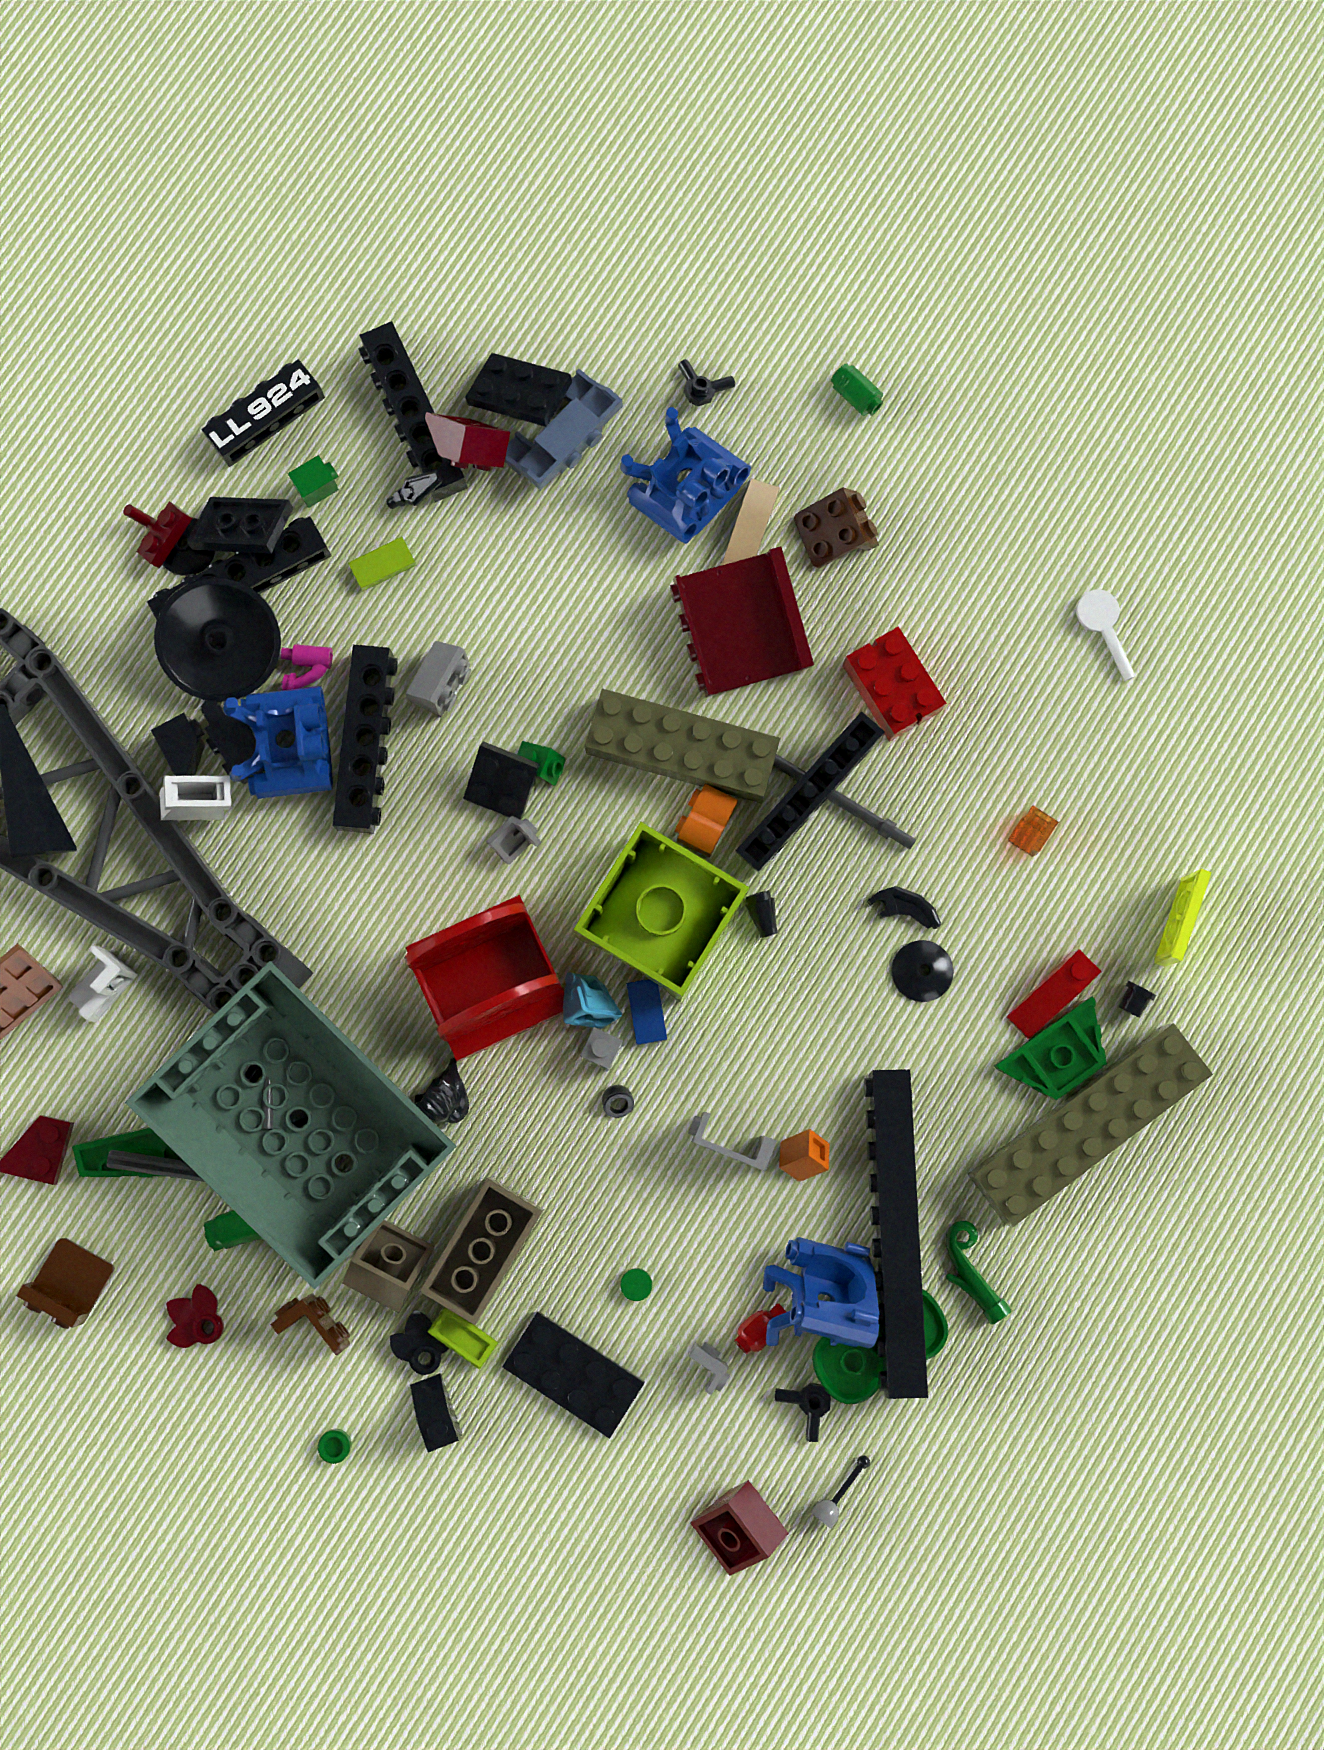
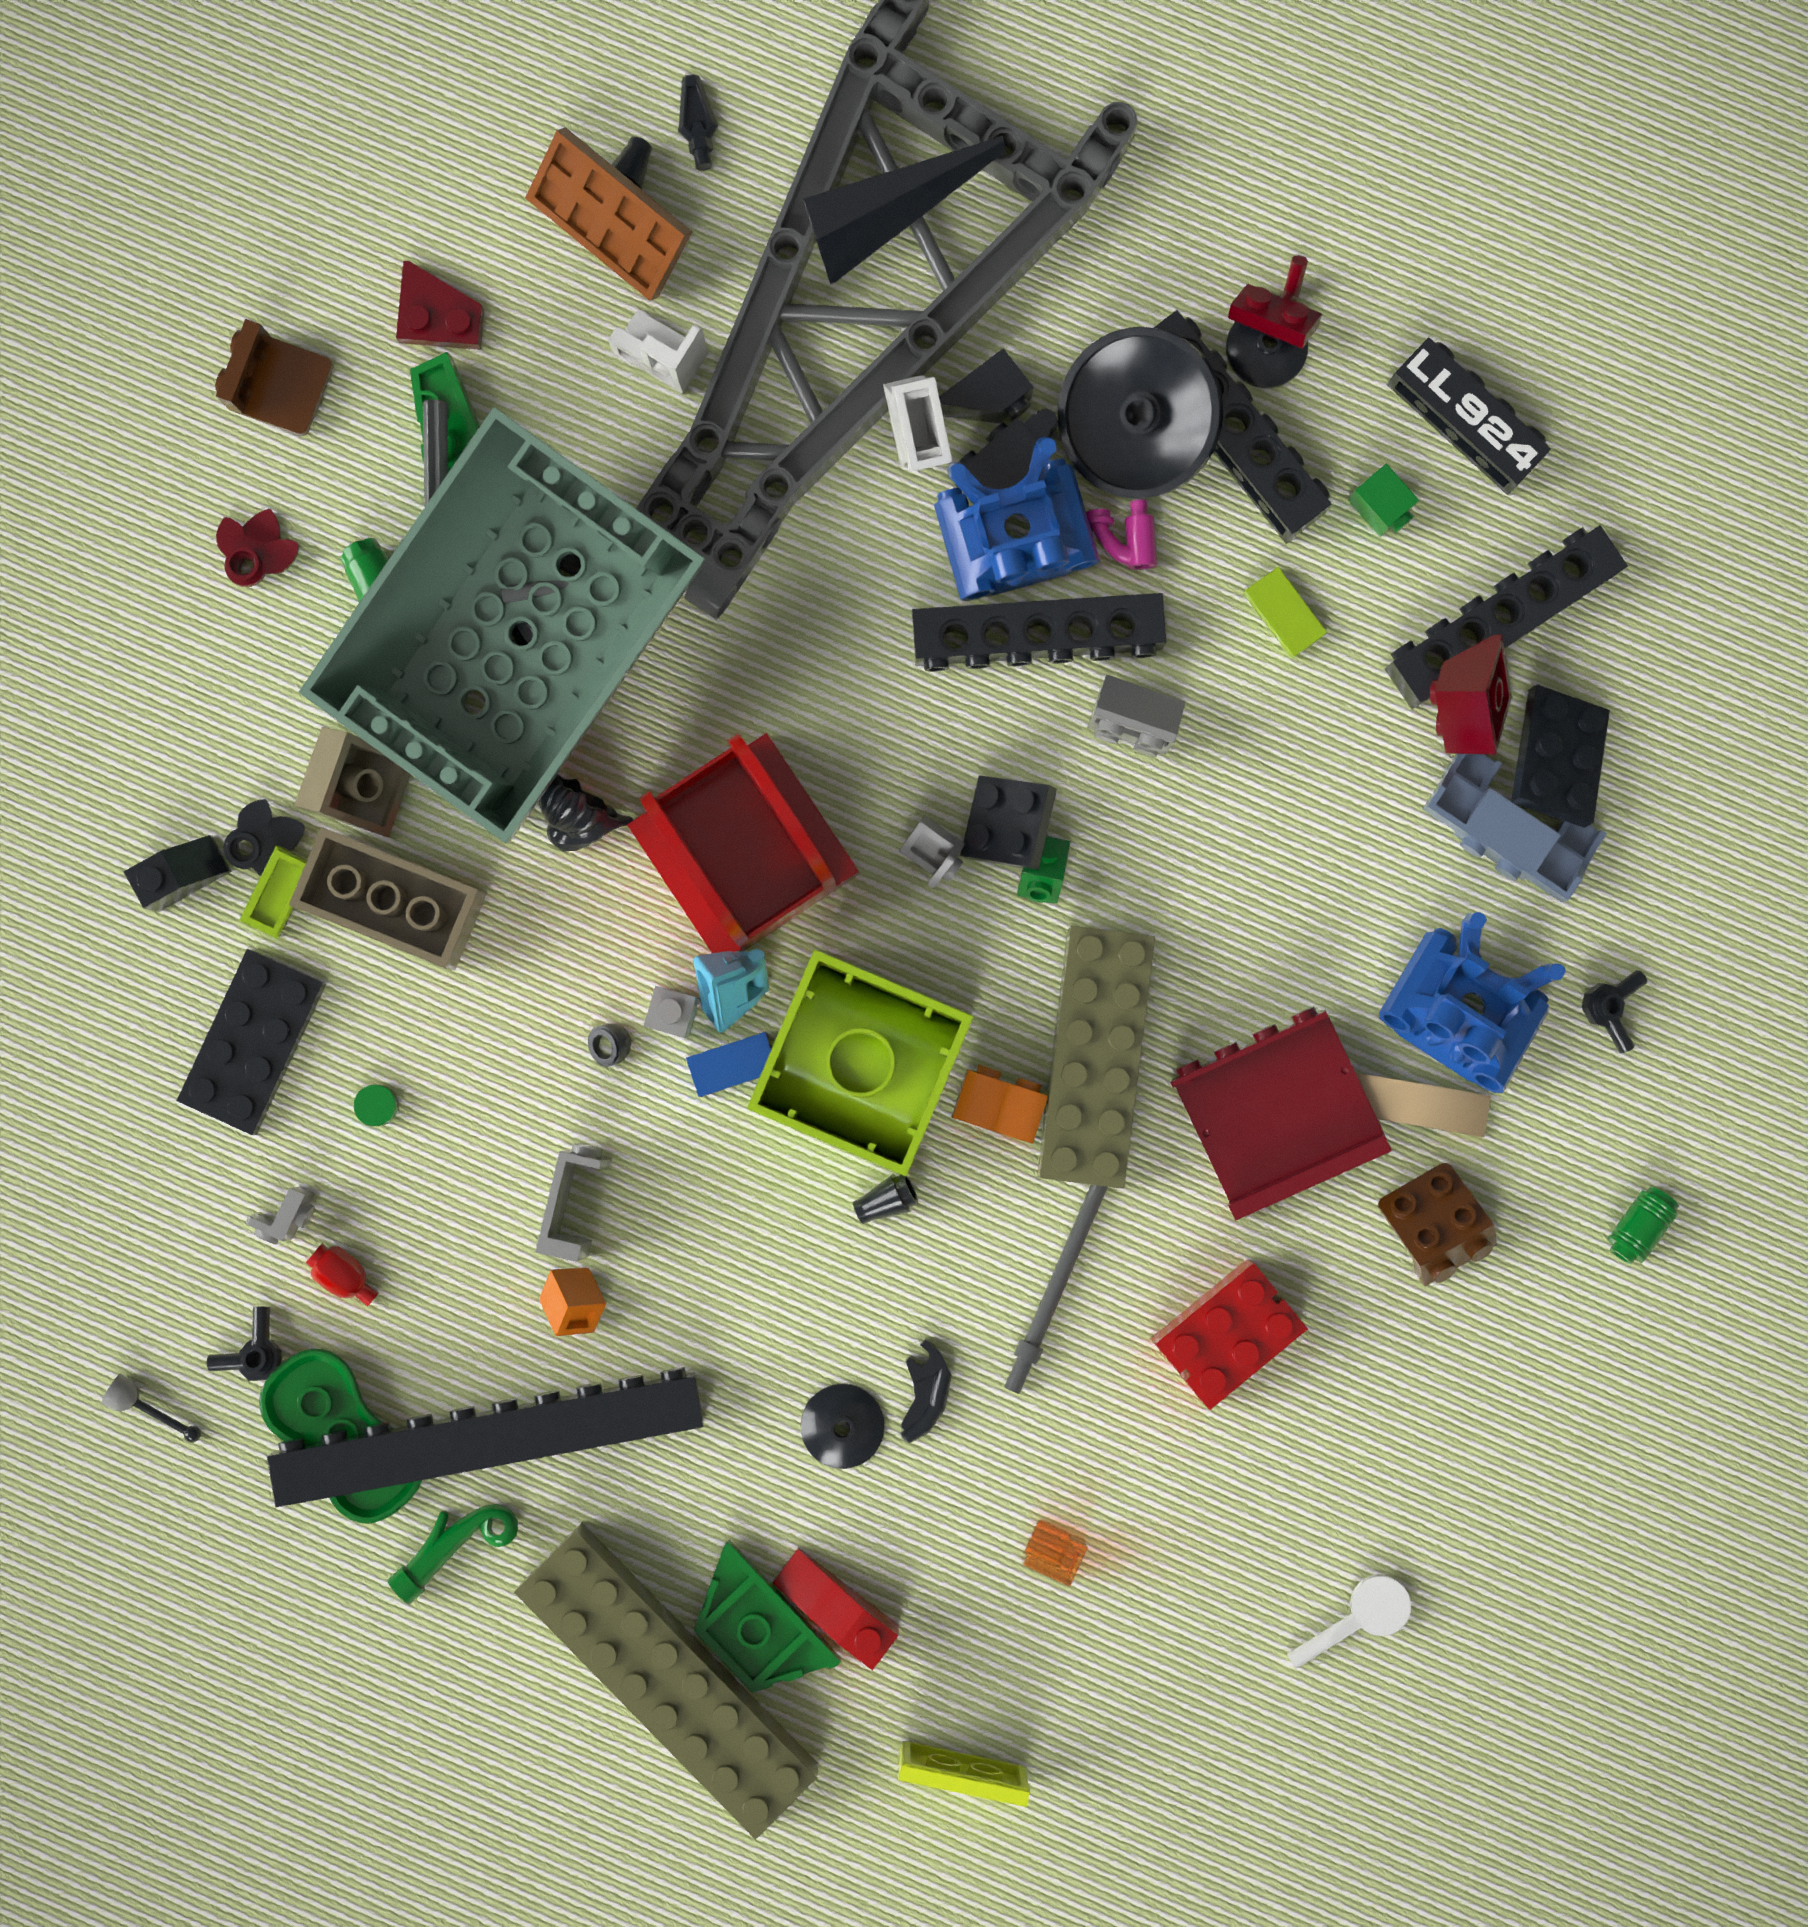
camera: 85 degrees right, 5 degrees up
(240, 525) = (1303, 414): black plate -> none
(317, 1312) = (277, 701): reddish brown bracket -> none
(334, 1446) = (121, 752): green tile -> none
(415, 489) = (1393, 639): black piece -> none
(740, 1528) = (86, 1286): dark red slope -> none
(810, 792) = (1055, 1240): black brick -> none
(839, 1273) = (423, 1364): blue piece -> none
(1136, 999) = (846, 1722): black piece -> none

